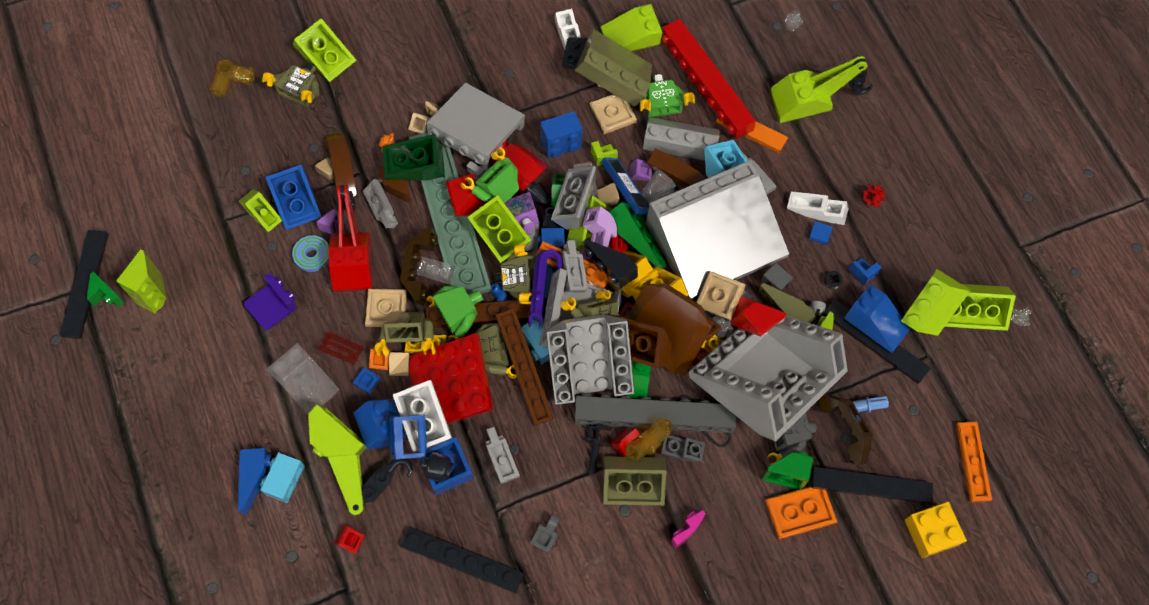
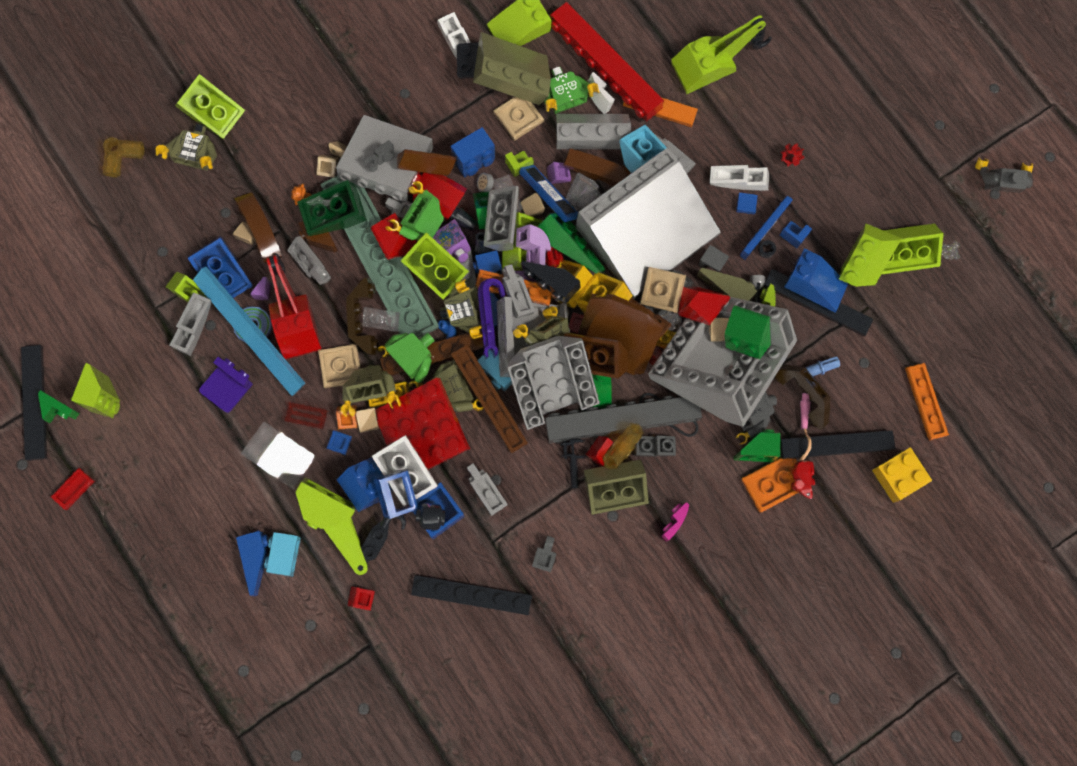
camera: 15 degrees left, 10 degrees up
(96, 372) = (72, 489): none -> red tile
(252, 240) = (191, 324): none -> light grey slope
(306, 257) = (249, 331): none -> dark azure tile
(473, 118) = (381, 154): none -> dark grey plate
(513, 133) = (425, 162): none -> reddish brown slope
(566, 163) = (485, 182): none -> tile
(696, 110) = (603, 99): none -> white slope
(770, 345) = (717, 329): none -> tan slope
(798, 350) = (748, 332): none -> green slope
(830, 505) = (803, 472): none -> red animal
(836, 258) = (766, 227): none -> blue tile
(845, 440) = (804, 410): none -> bright pink animal
(1088, 257) = (1005, 179): none -> dark grey torso

